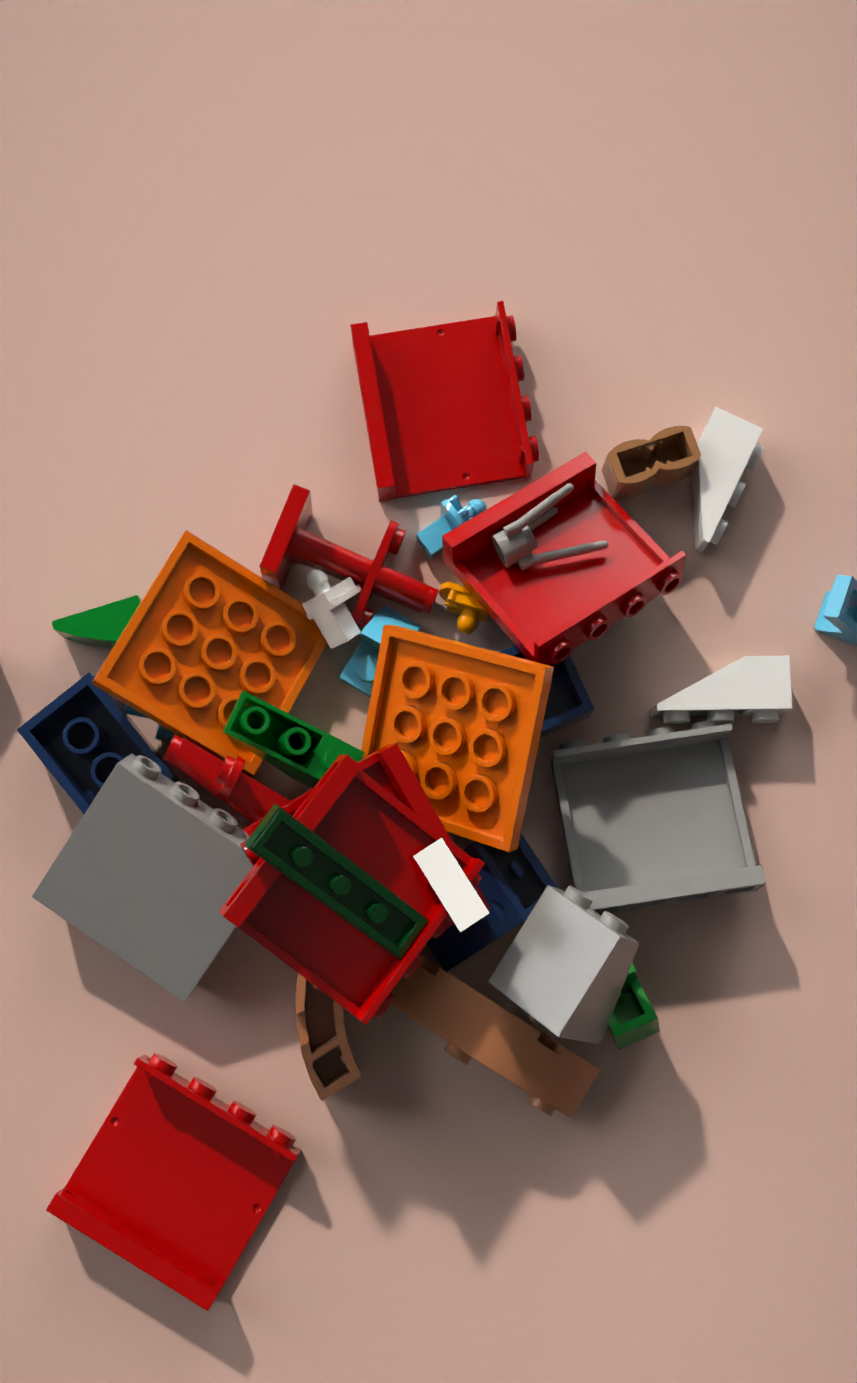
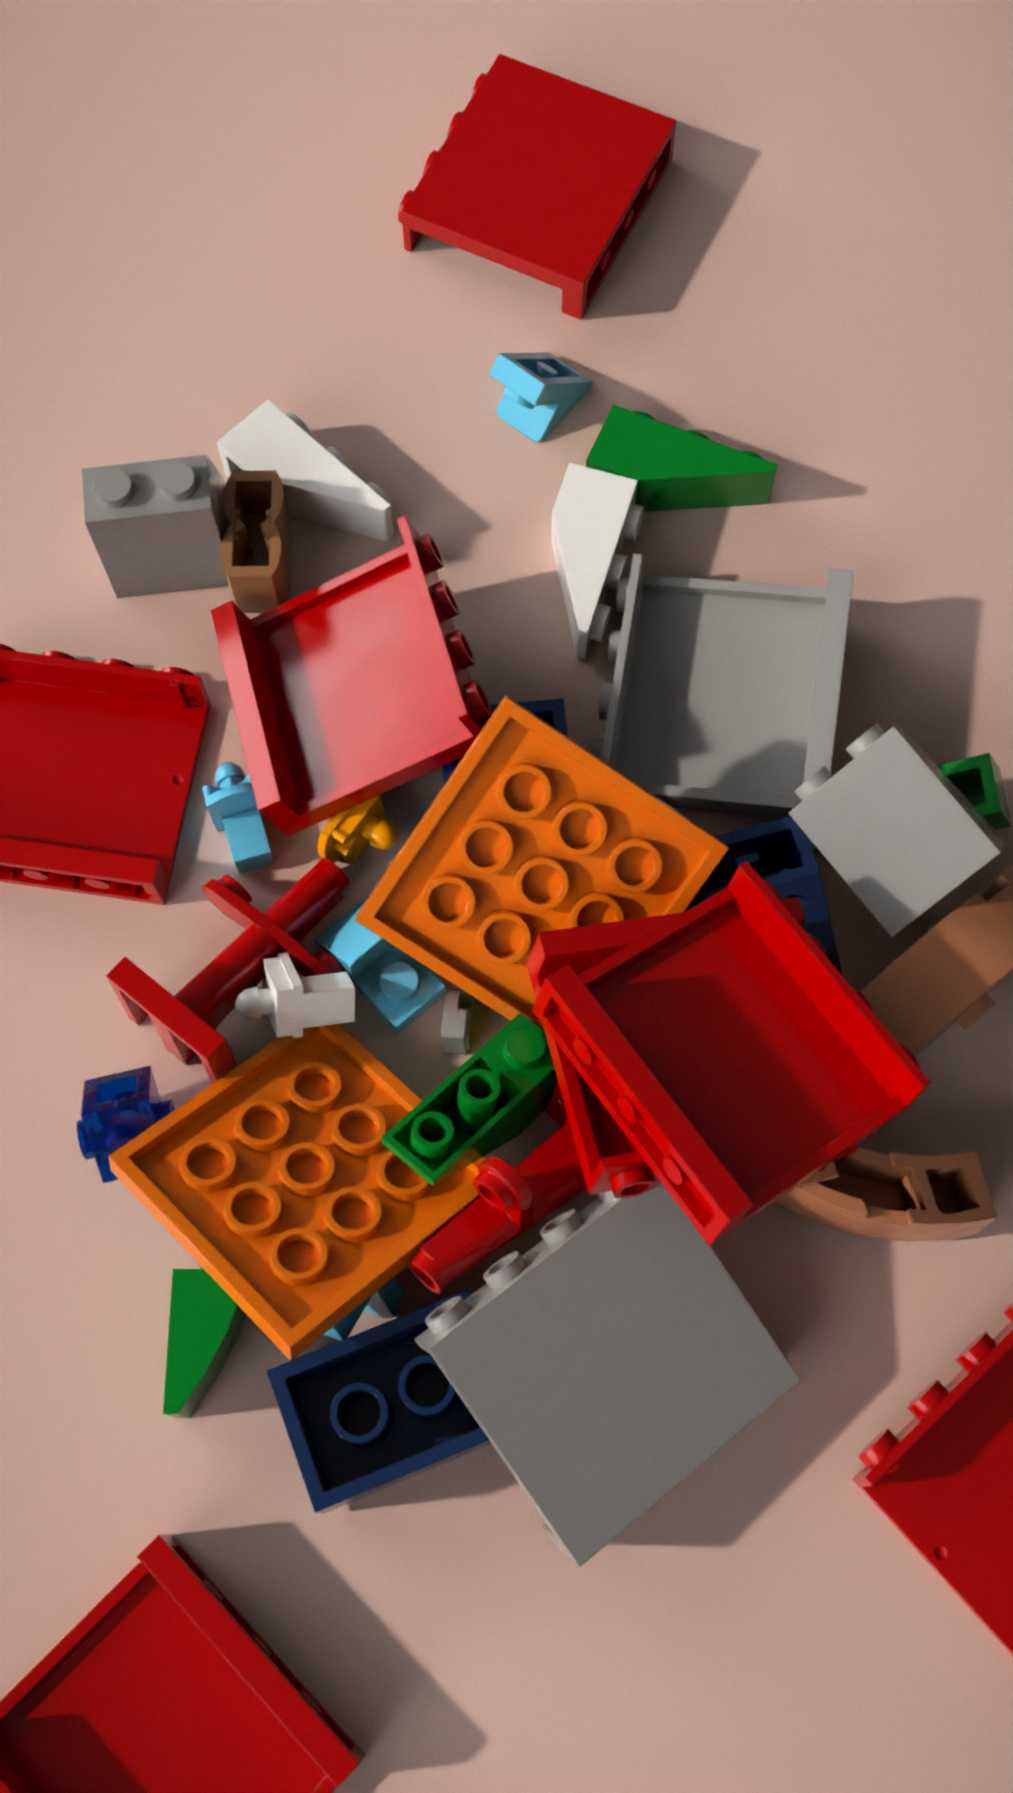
camera: 70 degrees left, 10 degrees down
(224, 527) = (116, 1112): none -> clear blue brick
(336, 882) = (717, 1055): dark green tile -> none
(352, 714) = (457, 1022): none -> light grey tile
(451, 885) = (764, 912): white sticker -> none
(517, 540) = (301, 721): light grey plant -> none
(638, 388) = (157, 524): none -> light grey slope
(820, 729) = (678, 466): none -> green slope

